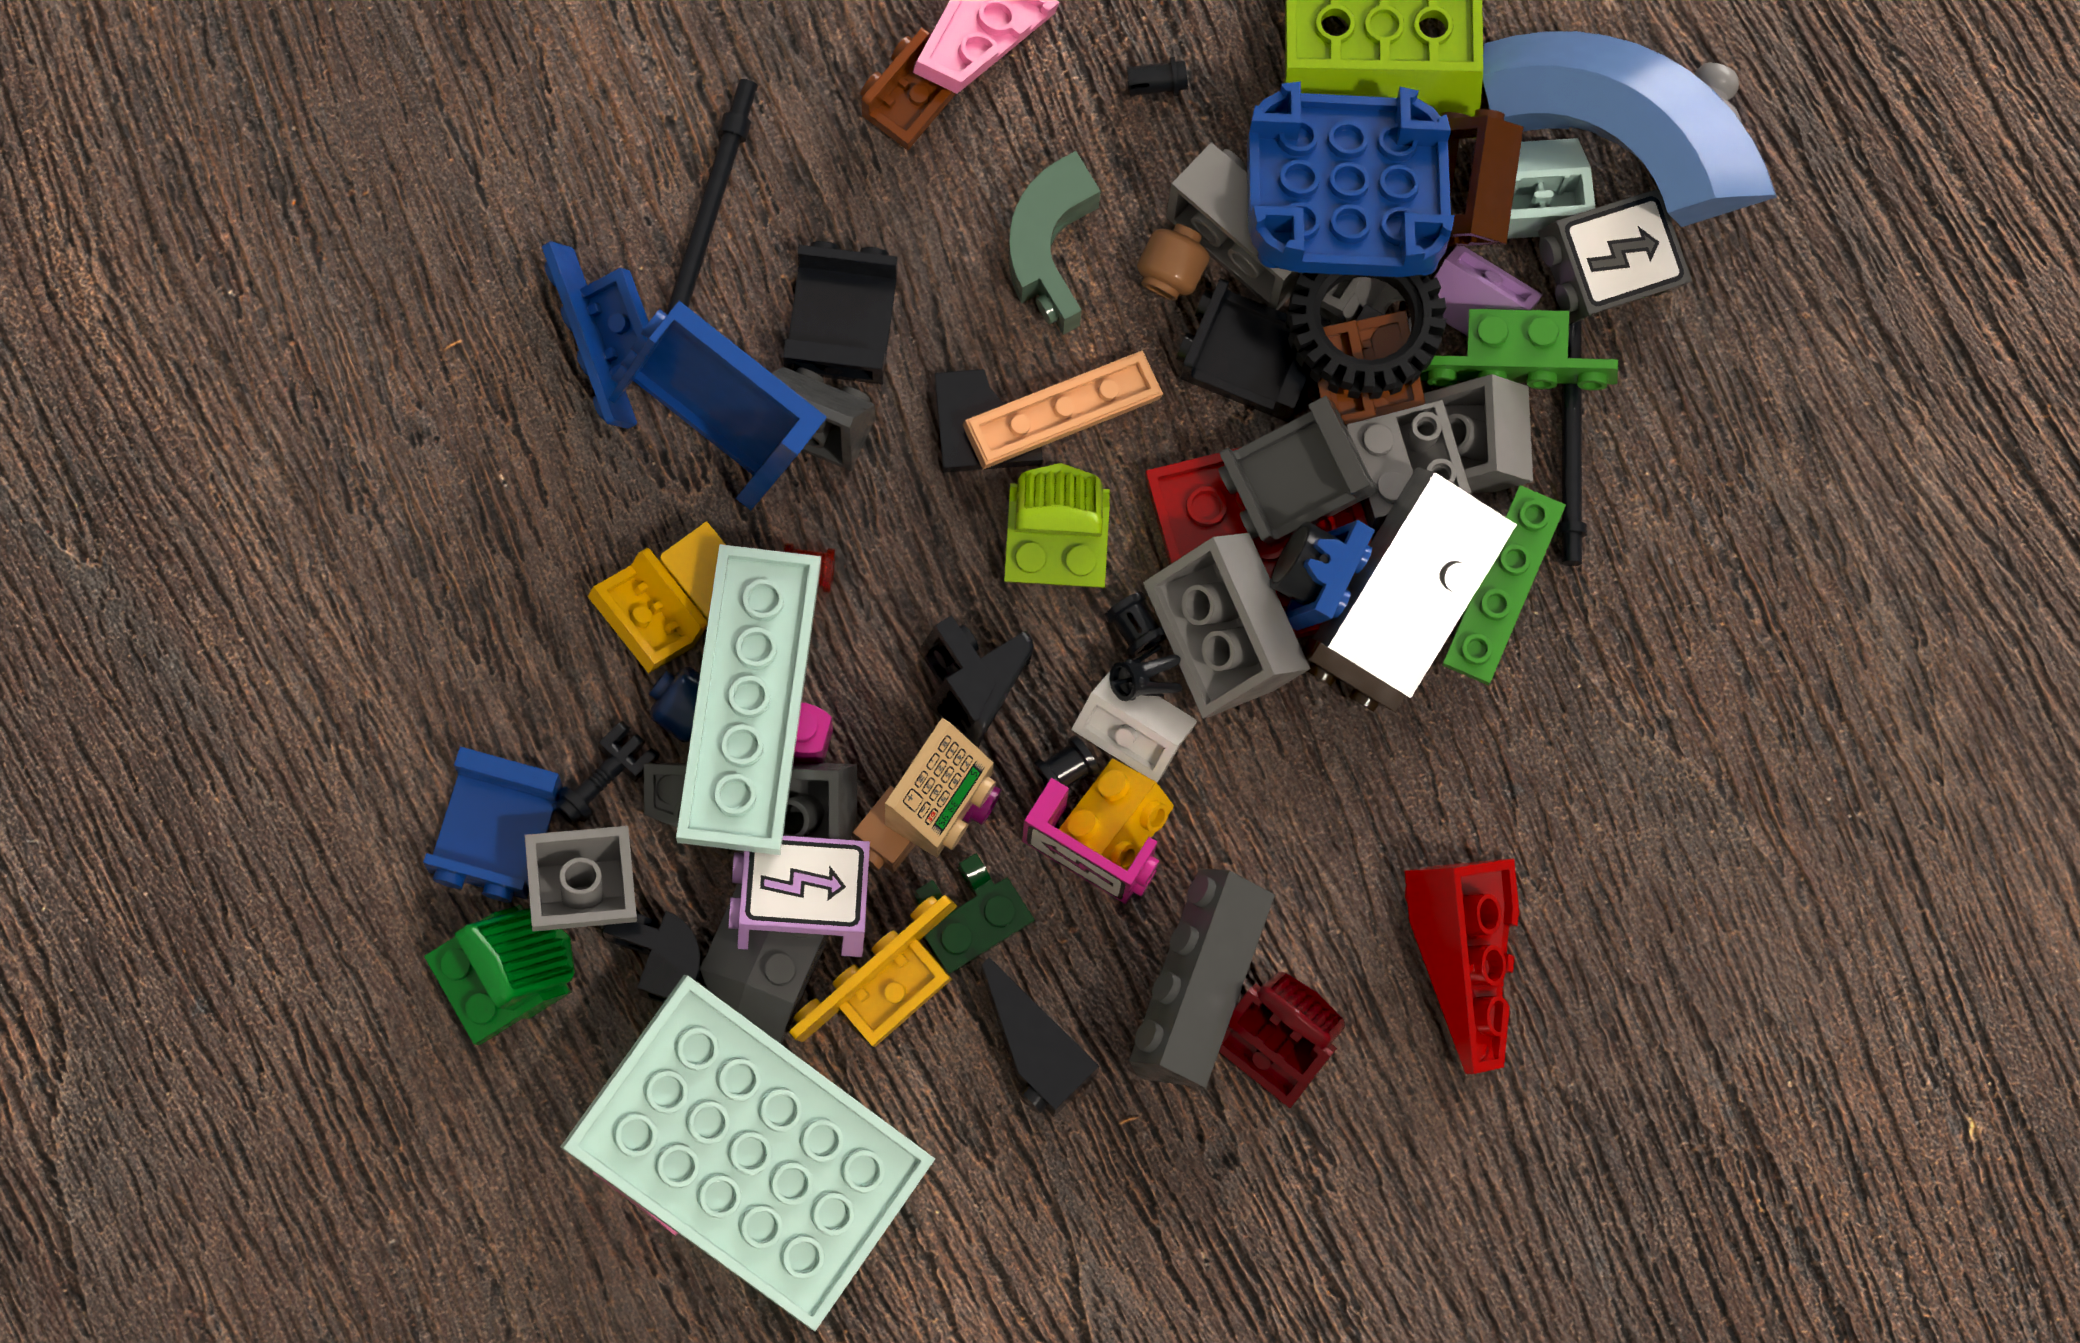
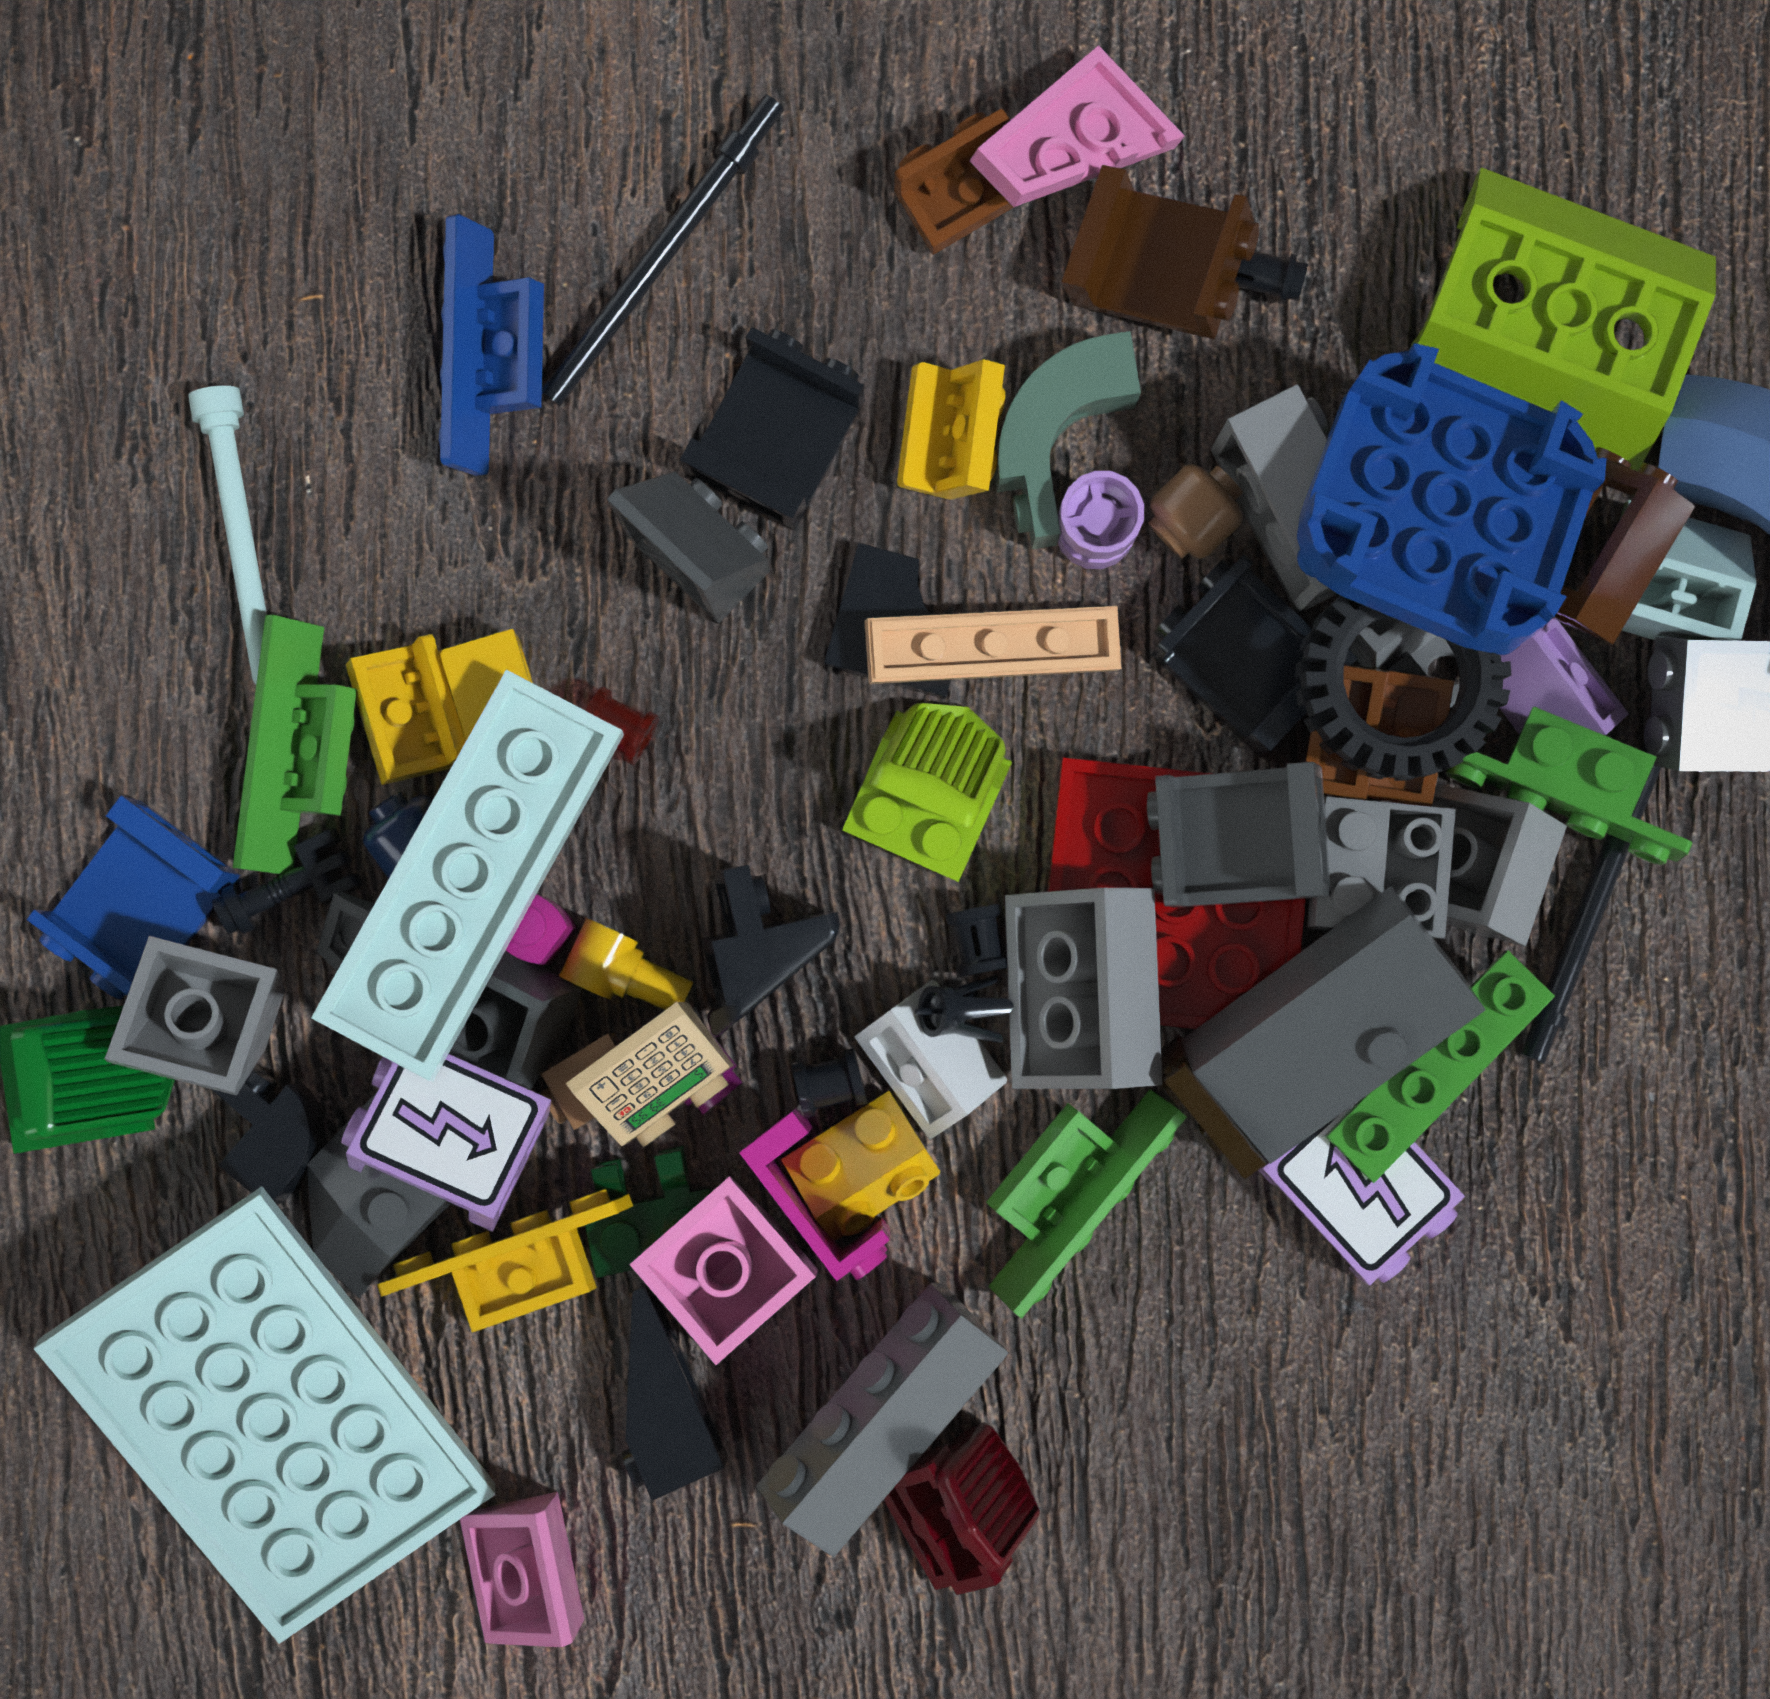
camera: 30 degrees right, 10 degrees up
(419, 451) = (218, 415): none -> light aqua piece
(574, 669) = (294, 746): none -> bright green bracket
(720, 395) = (569, 483): blue panel -> none
(869, 741) = (611, 965): none -> yellow pin
(972, 267) = (951, 429): none -> yellow bracket
(976, 1209) = (523, 1572): none -> bright pink slope
(1043, 923) = (724, 1269): none -> bright pink slope
(1075, 93) = (1159, 257): none -> reddish brown panel
(1106, 292) = (1099, 519): none -> lavender wheel
(1271, 776) = (1069, 1188): none -> bright green bracket
(1318, 569) = (1220, 973): blue piece -> none
(1462, 933) = (1219, 1459): red wedge -> none
(1491, 715) = (1364, 1219): none -> panel

